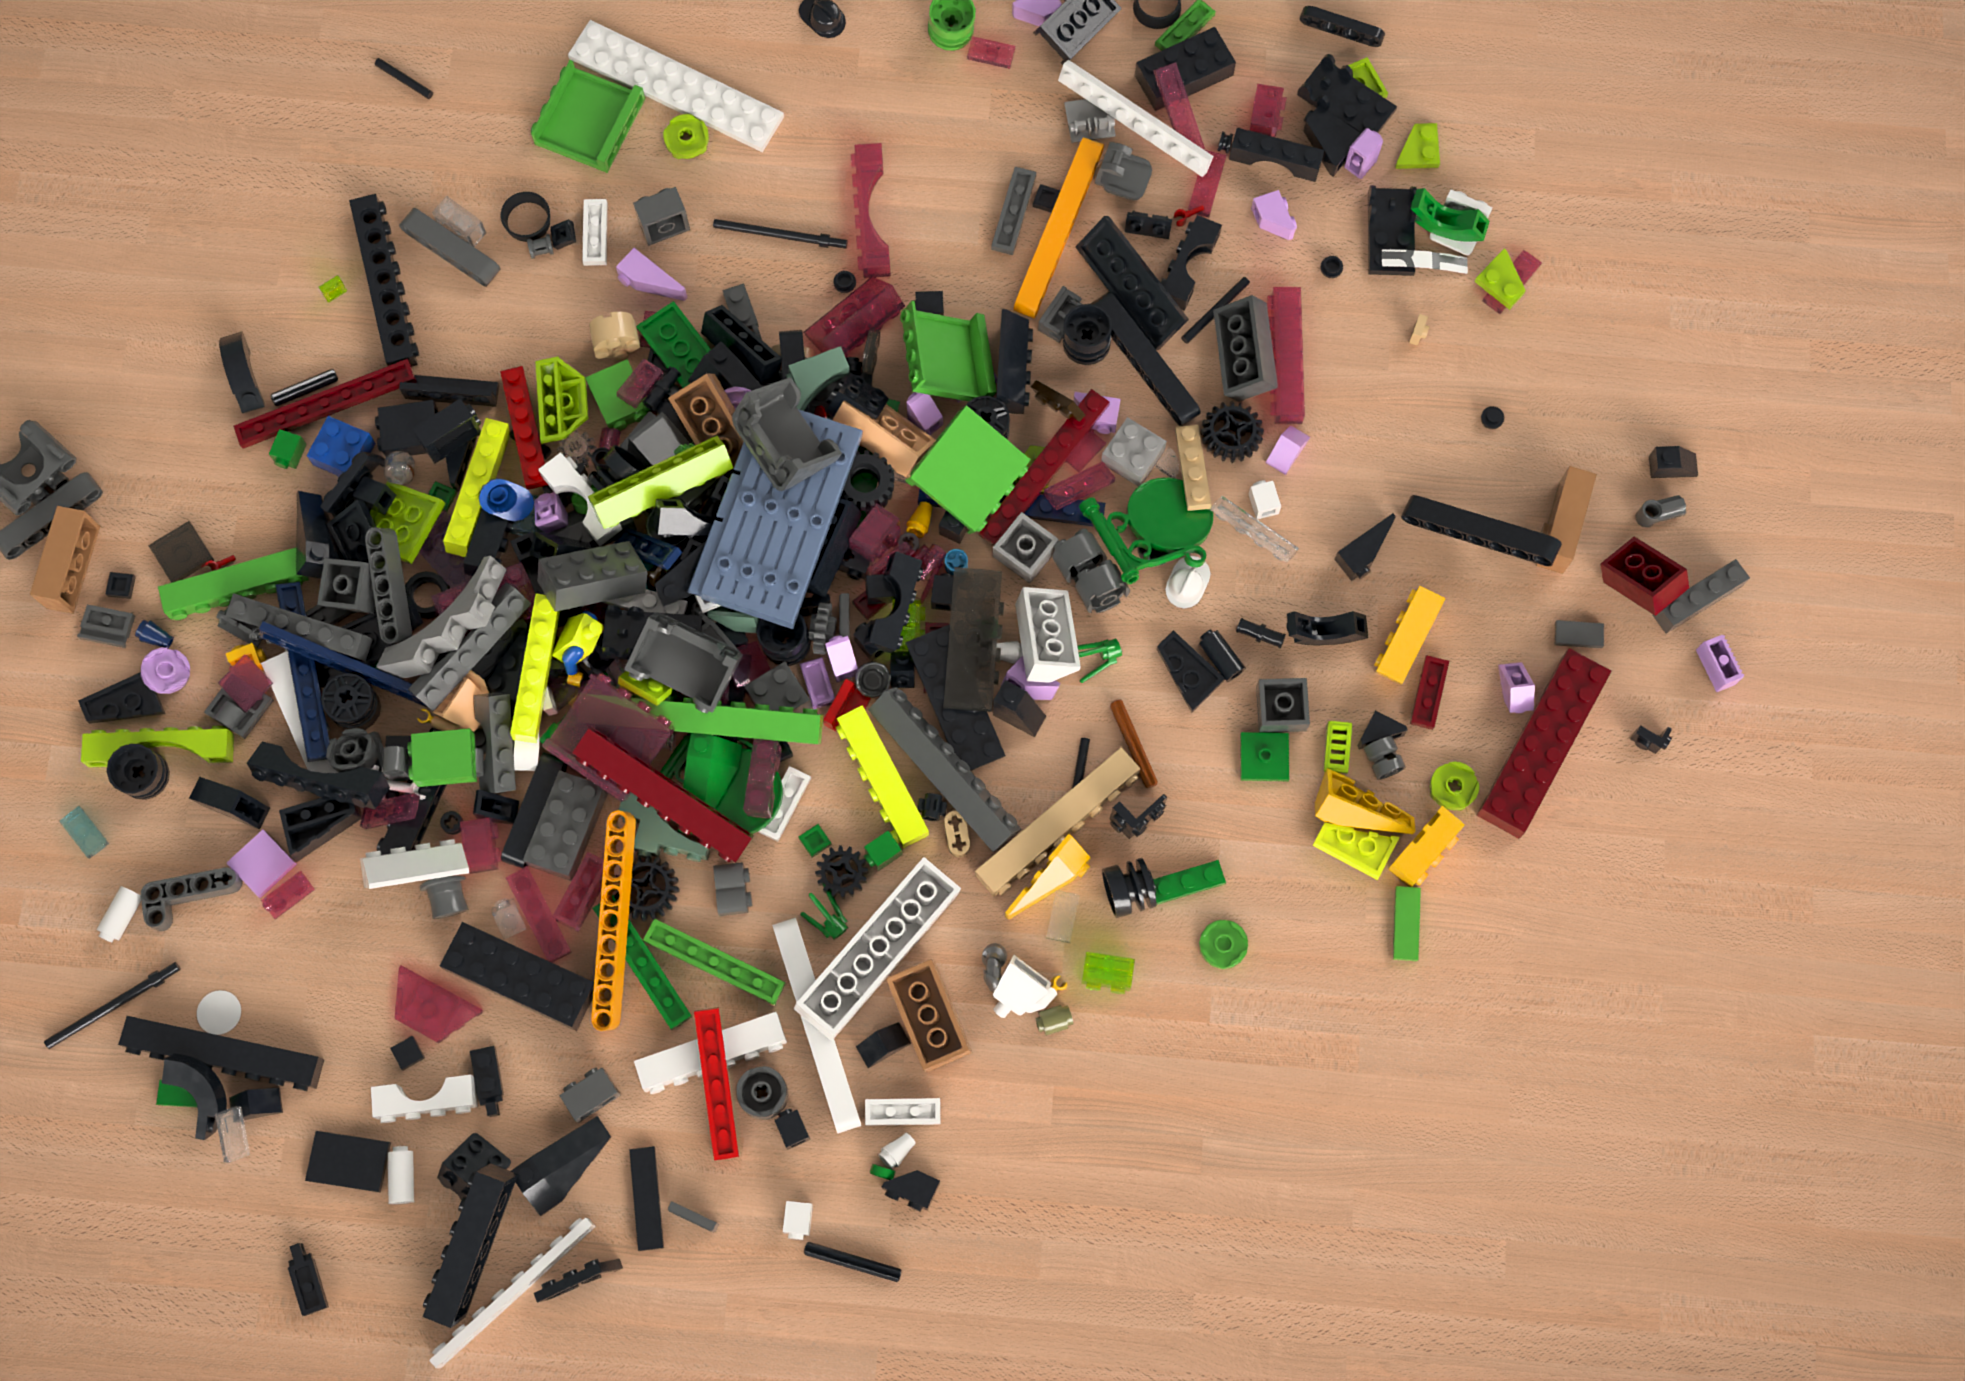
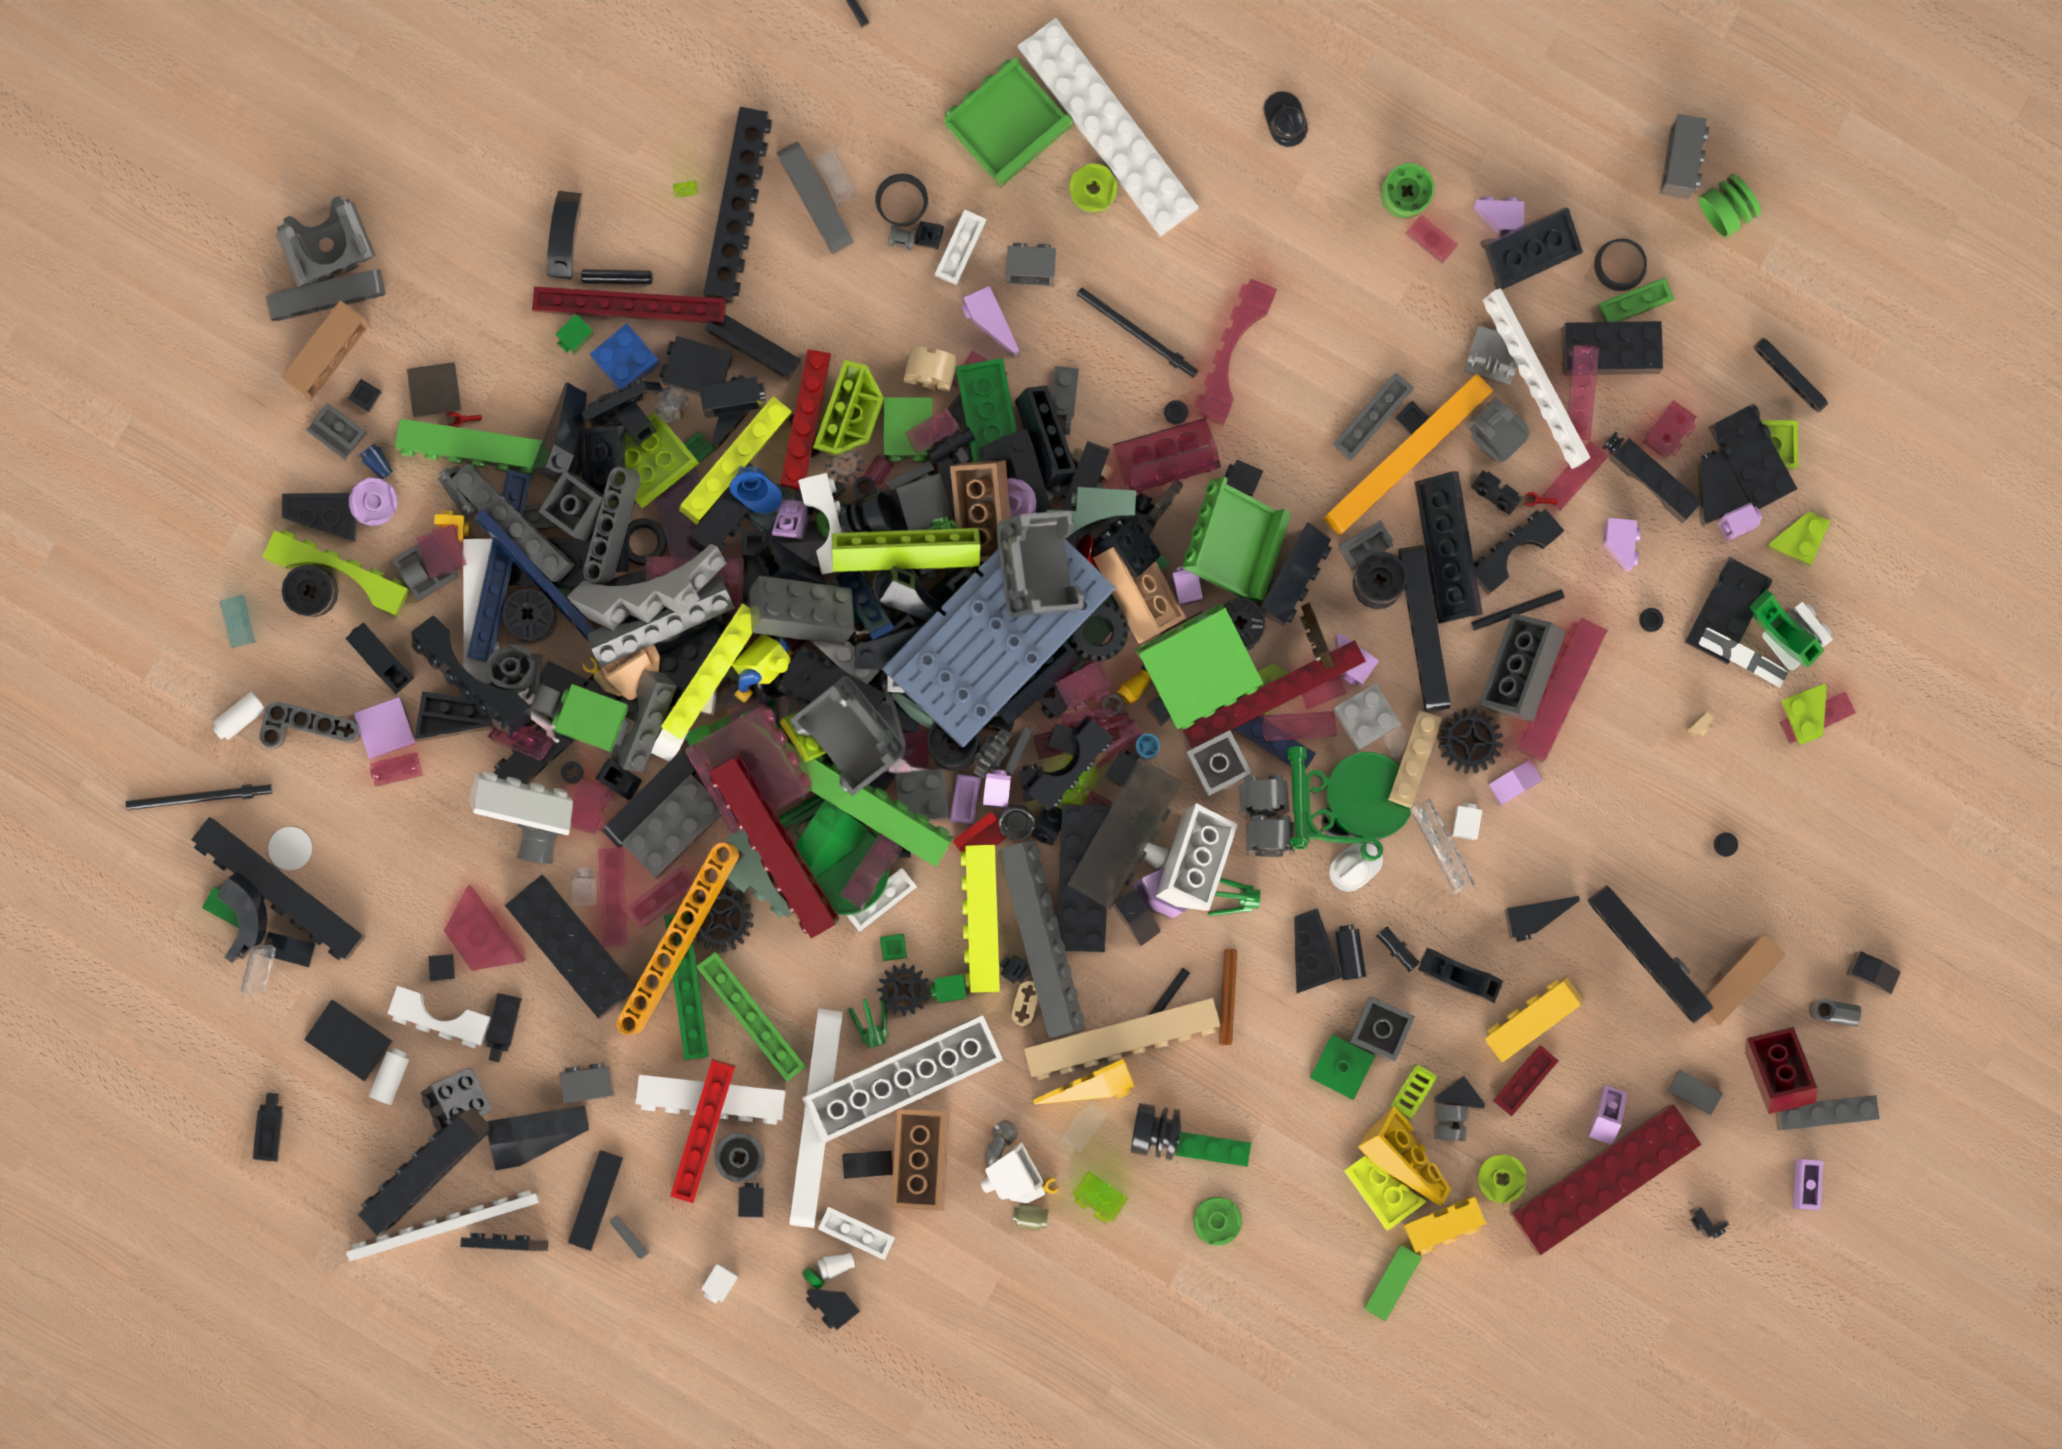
camera: 20 degrees right, 10 degrees up
(731, 889) = (797, 957): dark grey brick -> none
(852, 1261) = (750, 1343): black axle -> none
(1125, 822) = (1180, 1067): black bracket -> none

